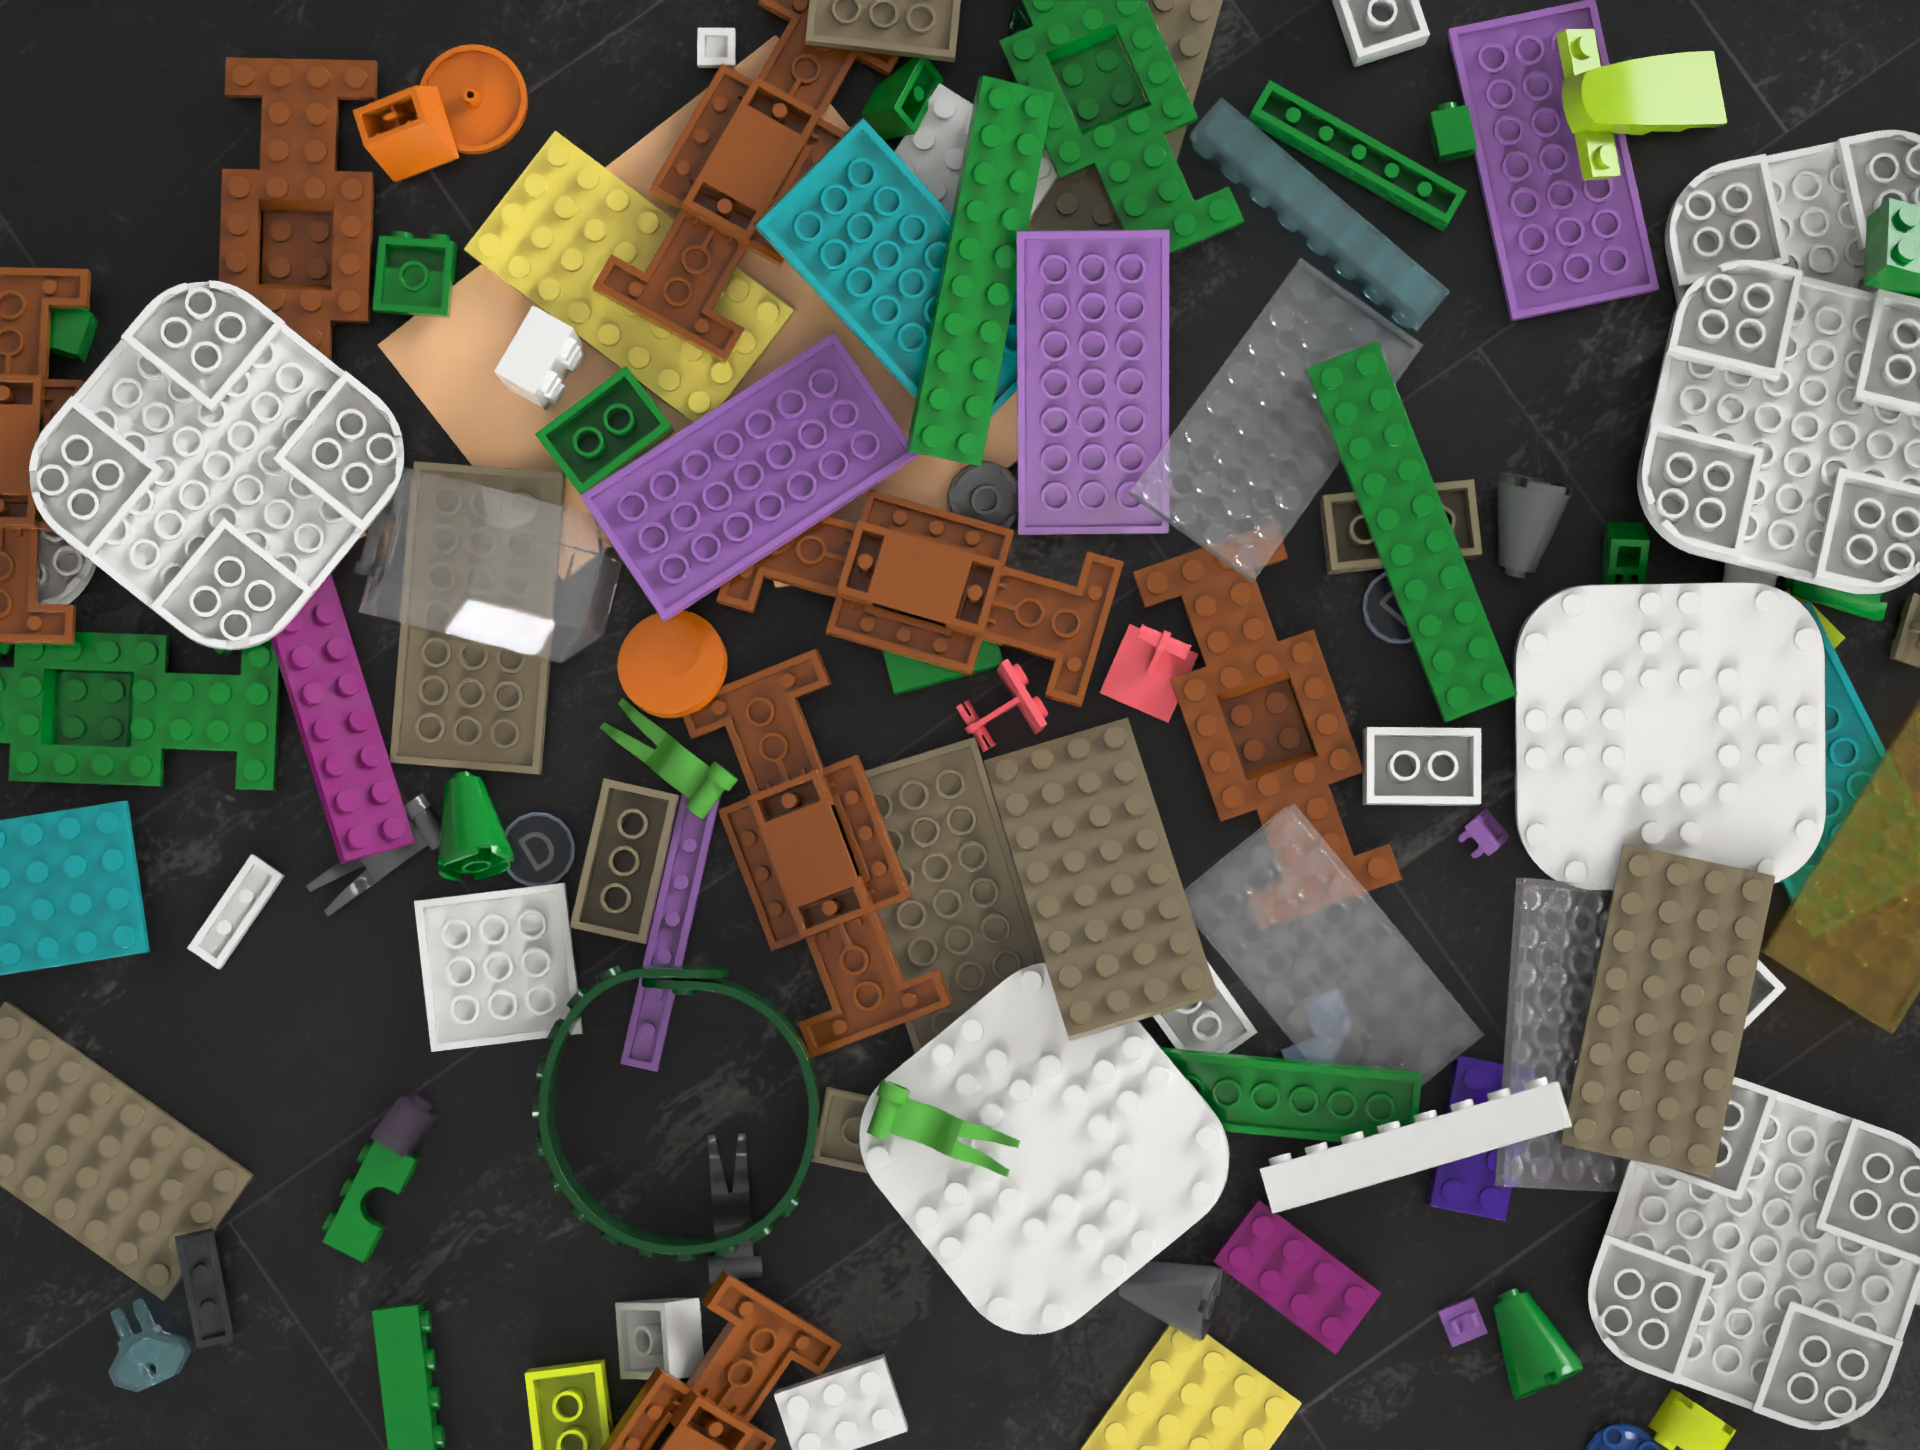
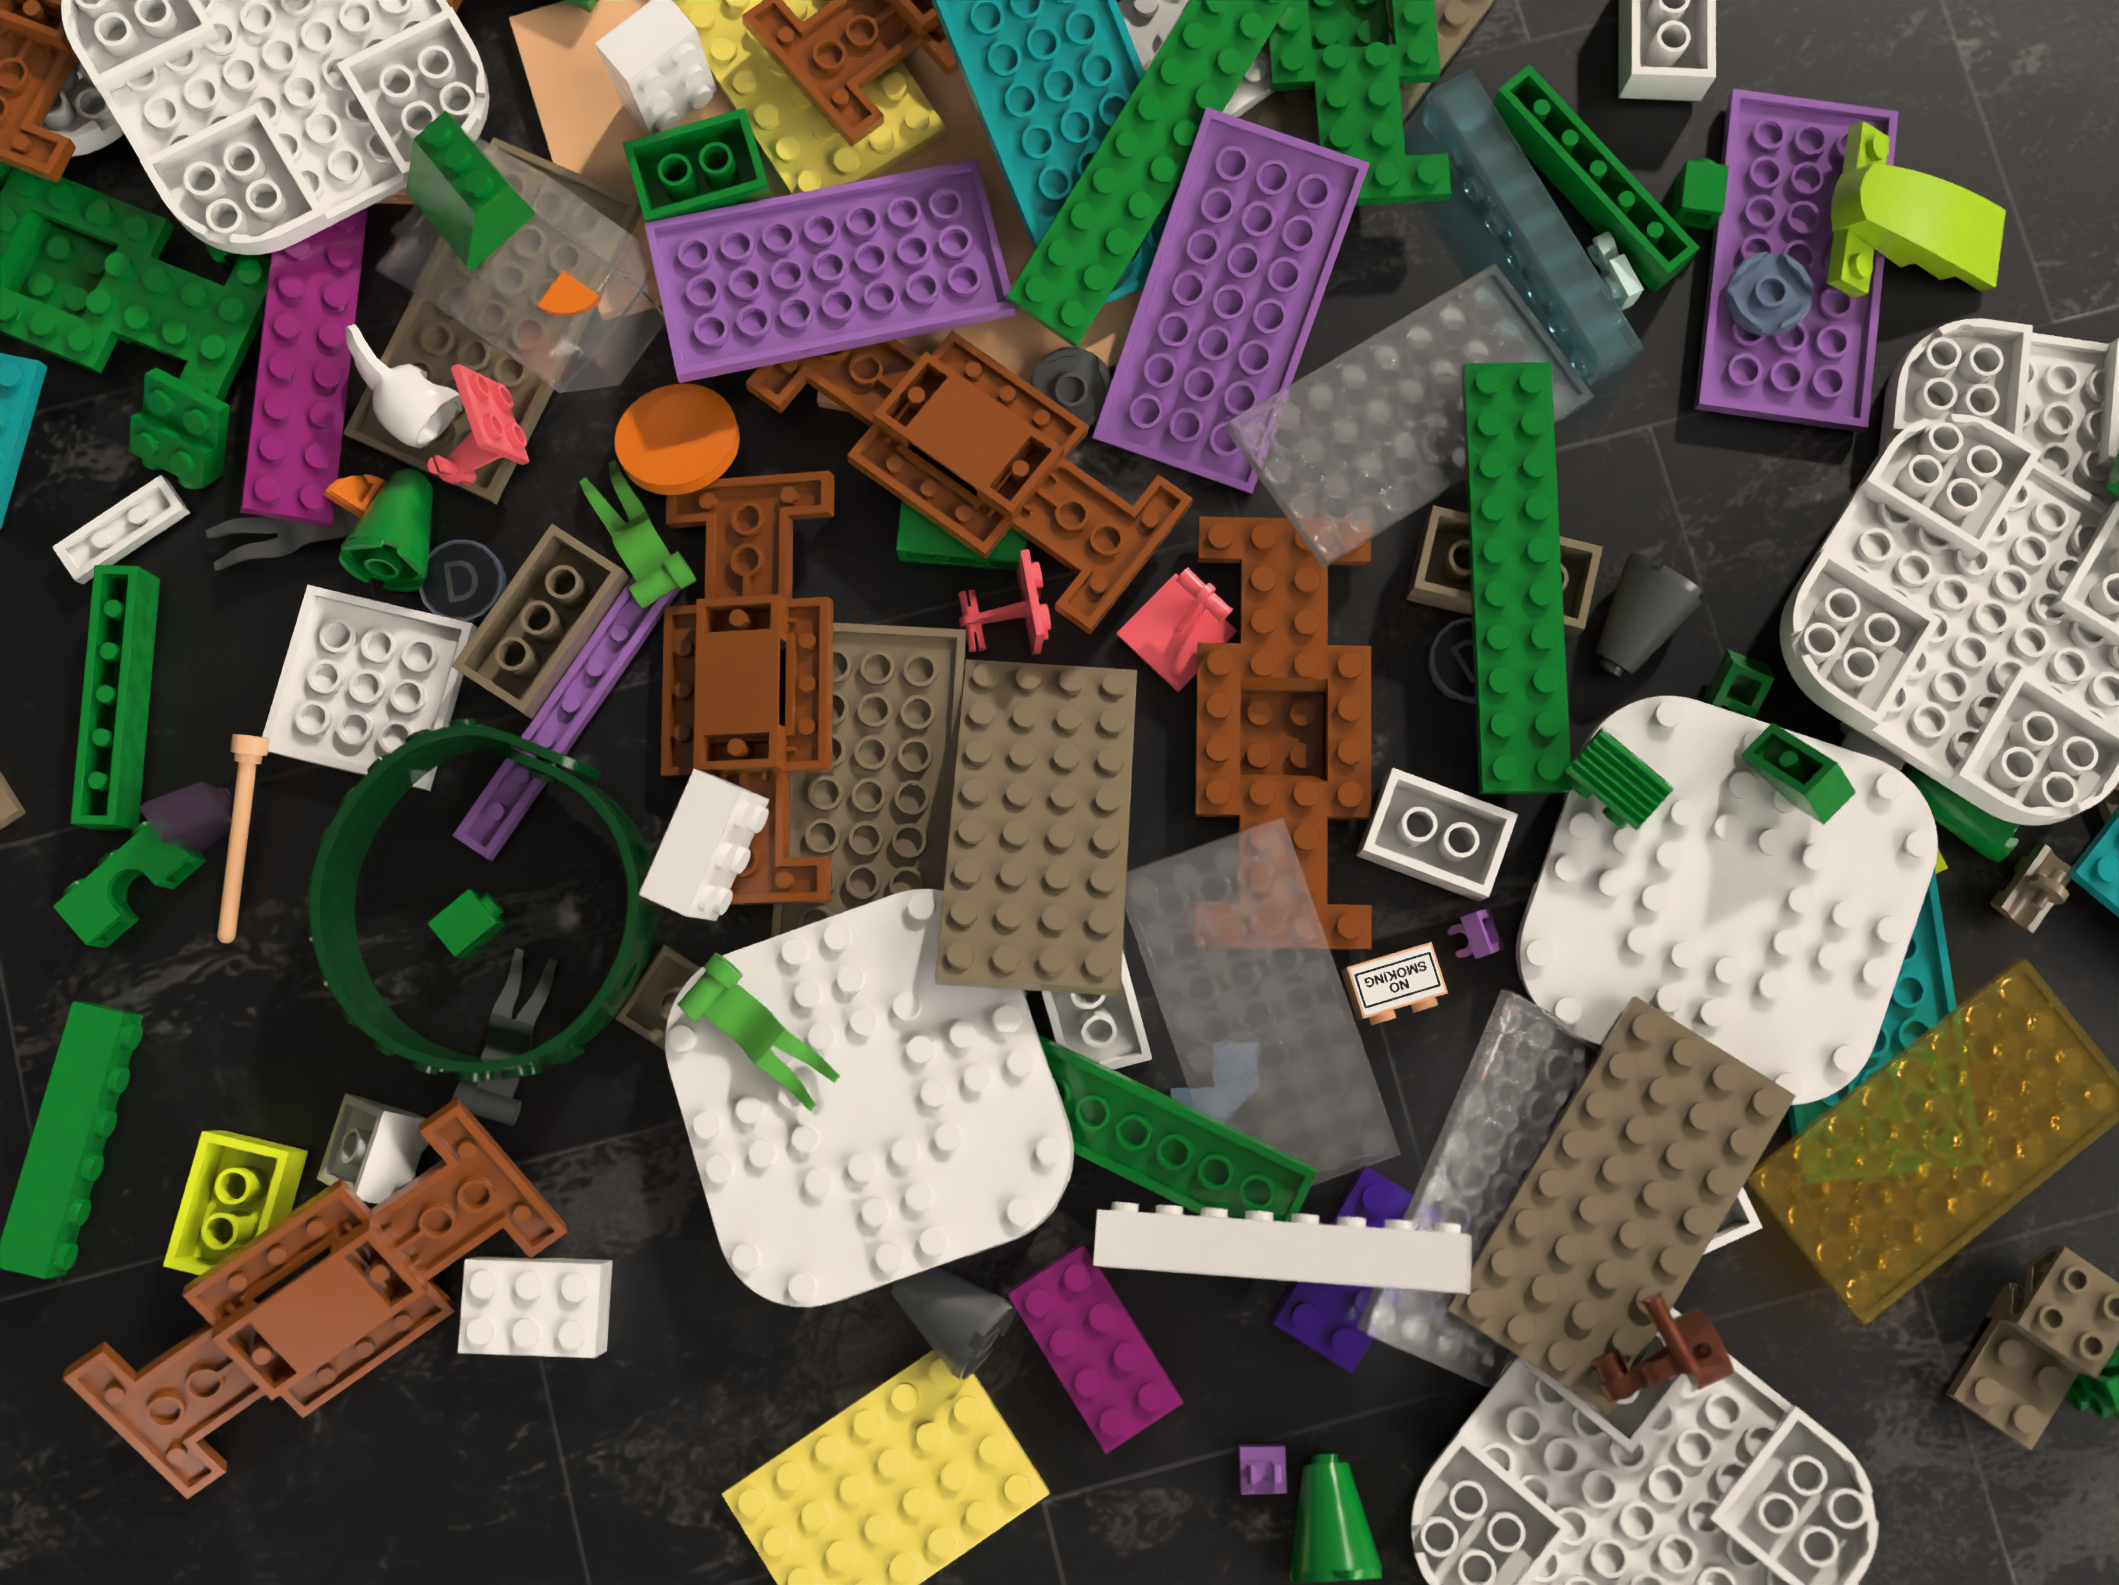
camera: 20 degrees right, 5 degrees down
(255, 812) = (180, 430): none -> green plate
(298, 1054) = (115, 698): none -> green brick
(425, 810) = (354, 492): none -> orange tile
(426, 531) = (463, 191): none -> green slope
(428, 1057) = (248, 753): none -> light nougat piece
(439, 719) = (403, 396): none -> white piece
(528, 722) = (492, 426): none -> coral plate
(550, 589) = (568, 297): none -> orange tile
(662, 1129) = (468, 923): none -> green brick
(841, 998) = (705, 847): none -> white brick
(1408, 235) = (1615, 270): none -> light aqua plate
(1430, 898) = (1395, 982): none -> brick
(1538, 203) = (1769, 294): none -> sand blue tile
(1549, 676) = (1618, 780): none -> green brick
(1689, 620) = (1799, 773): none -> green slope
(1752, 1104) = (1689, 1349): none -> copper piece

